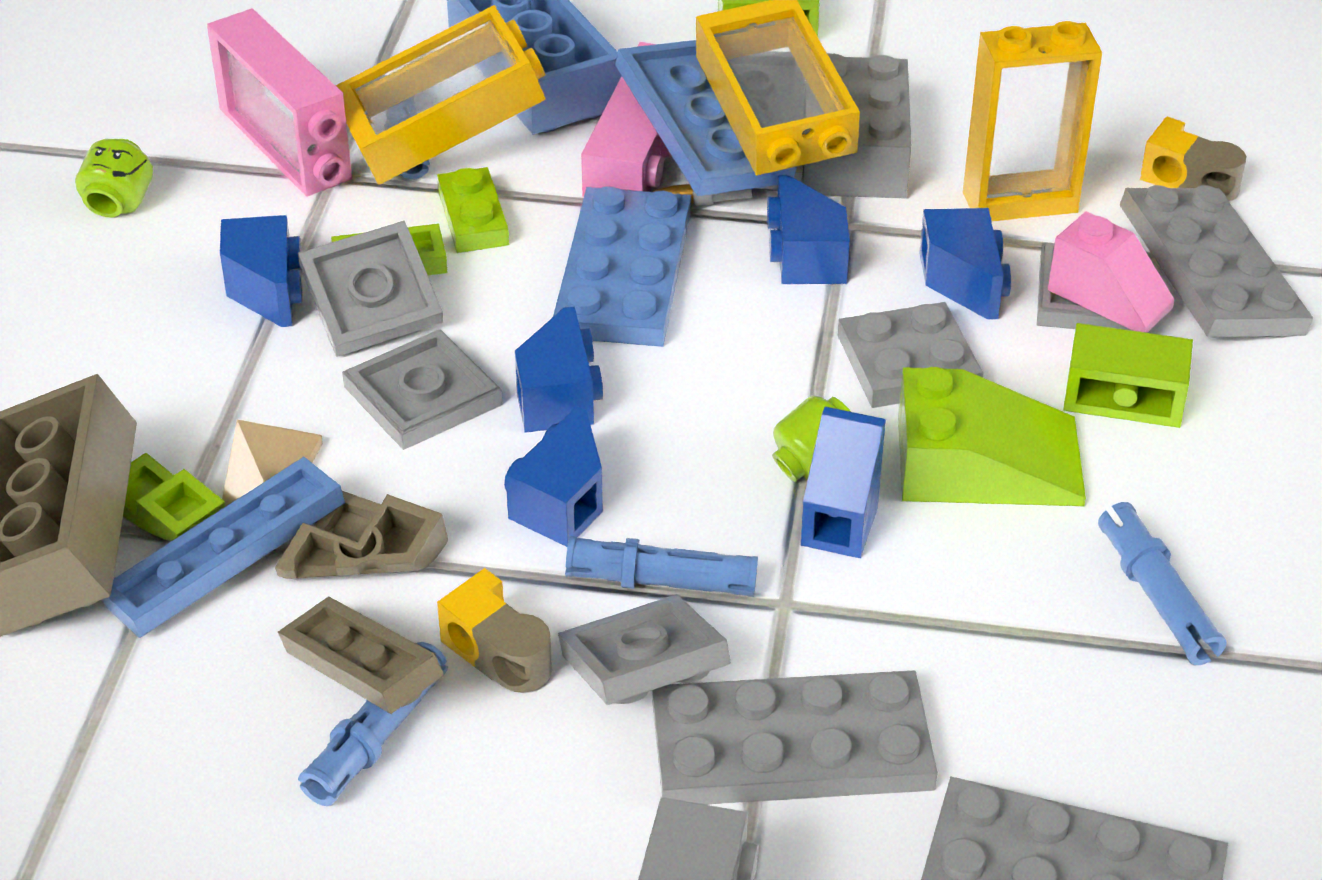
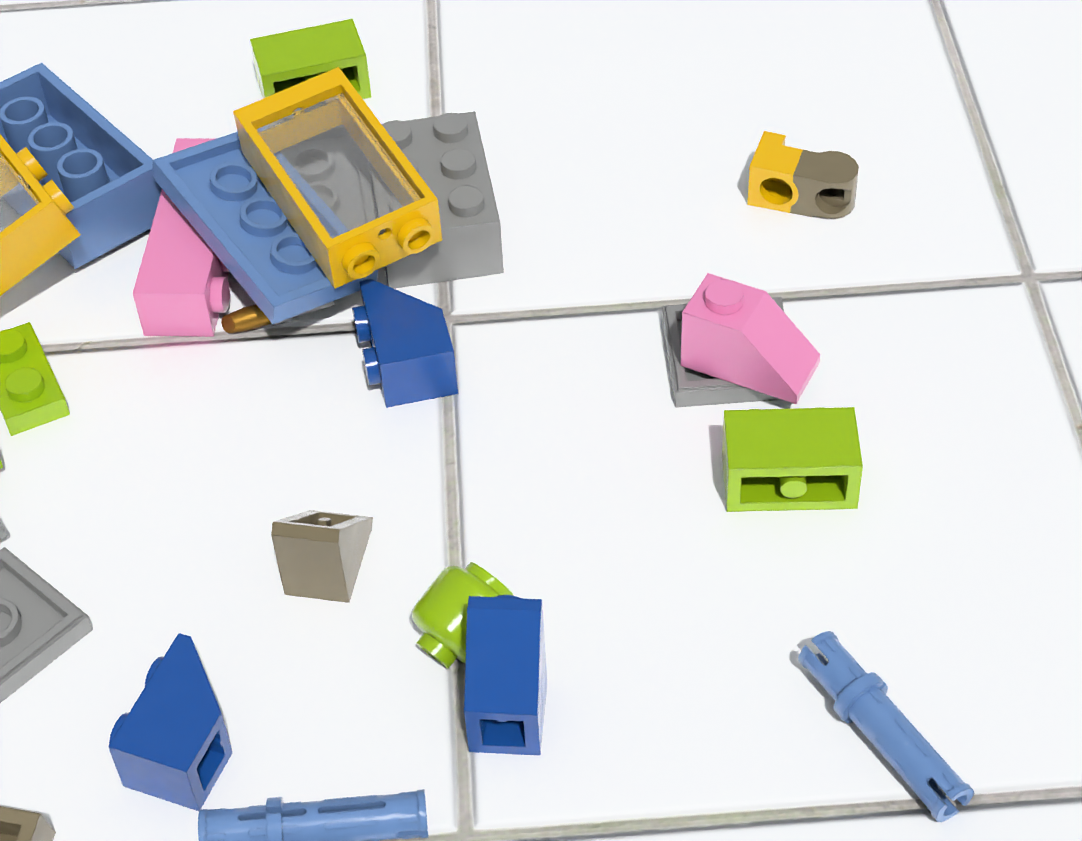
camera: 10 degrees left, 5 degrees up
(556, 372) = (146, 586): blue slope -> none
(625, 263) = (203, 423): medium blue plate -> none
(703, 377) = (320, 553): none -> dark tan slope
(899, 338) = (545, 475): light grey plate -> none
(964, 258) = (582, 343): blue slope -> none
(983, 443) = (651, 580): lime slope -> none
(1031, 120) = (626, 171): window -> none
(1215, 262) = (851, 297): light grey plate -> none

